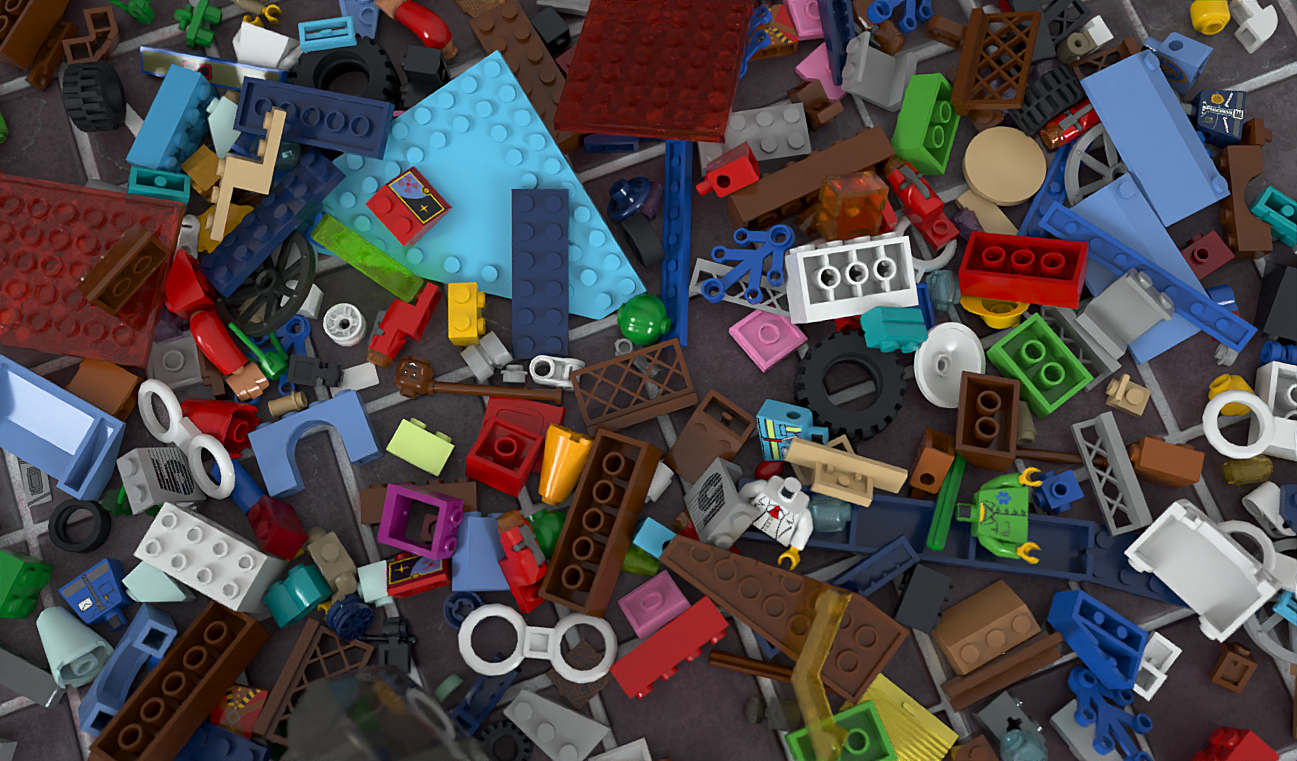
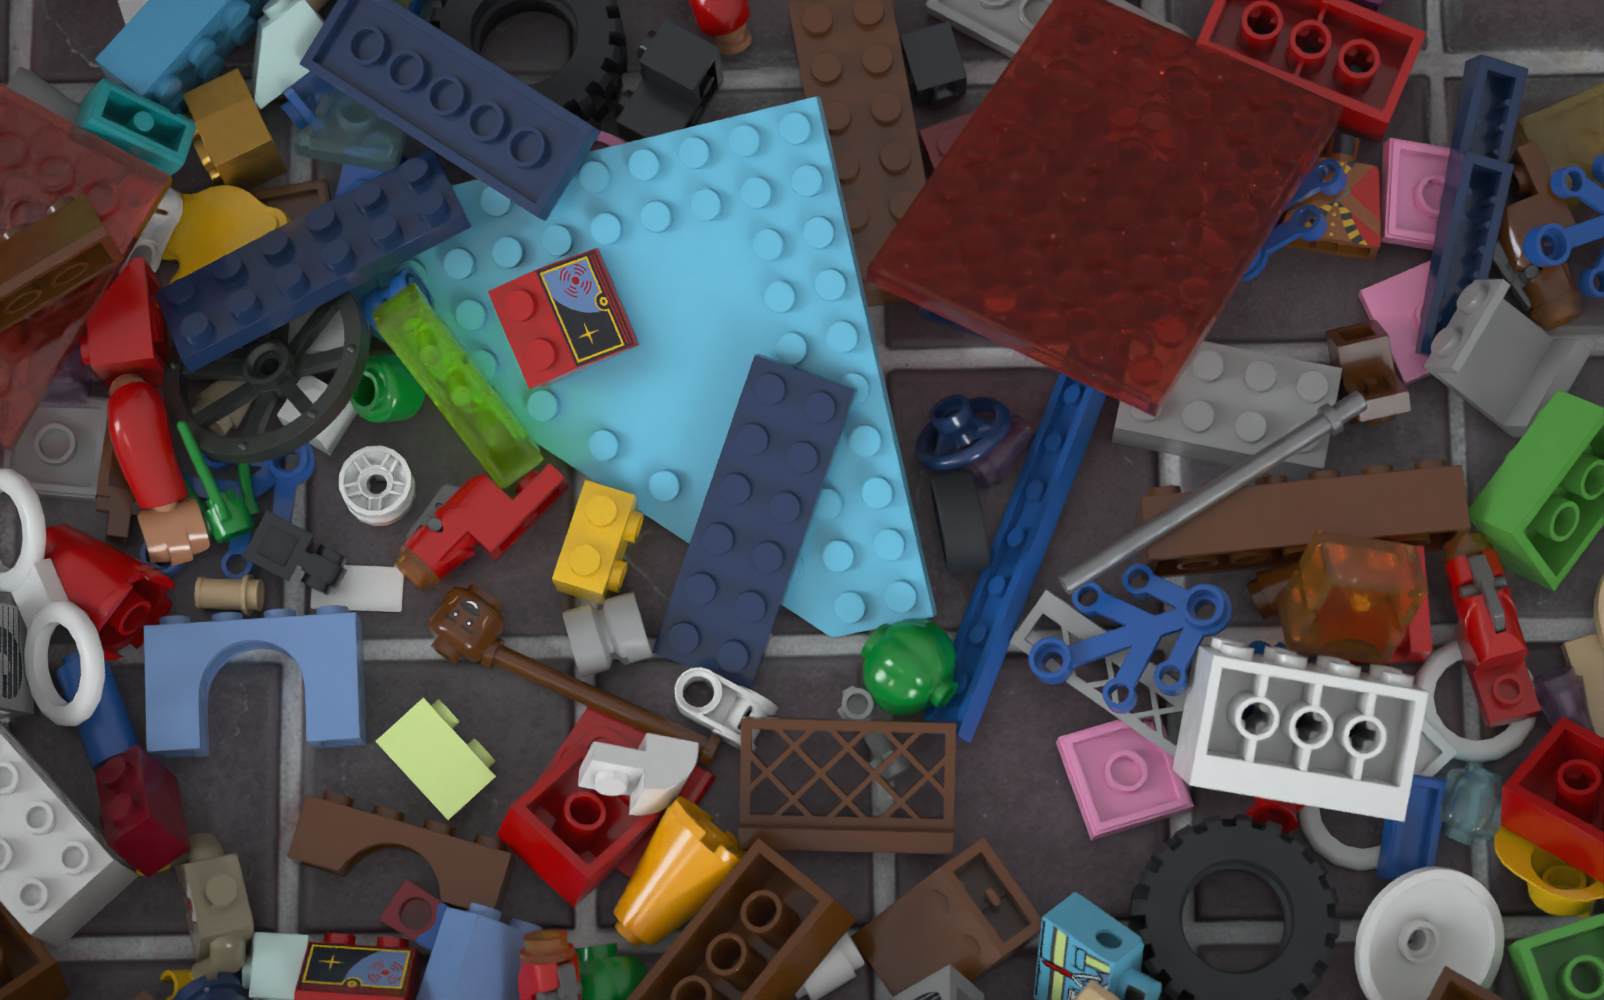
camera: 20 degrees right, 0 degrees up
(245, 172) = (298, 159): tan bracket -> none
(297, 595) = (135, 941): teal brick -> none
(333, 274) = (387, 391): none -> green head
(396, 516) = (353, 867): magenta window -> none
(514, 374) = (645, 683): light grey plate -> none
(531, 417) = (647, 775): none -> white brick
(738, 166) = (1160, 456): red torso -> none
(808, 123) = (1329, 420): none -> flat silver bar
(894, 328) = (1344, 849): teal brick -> none

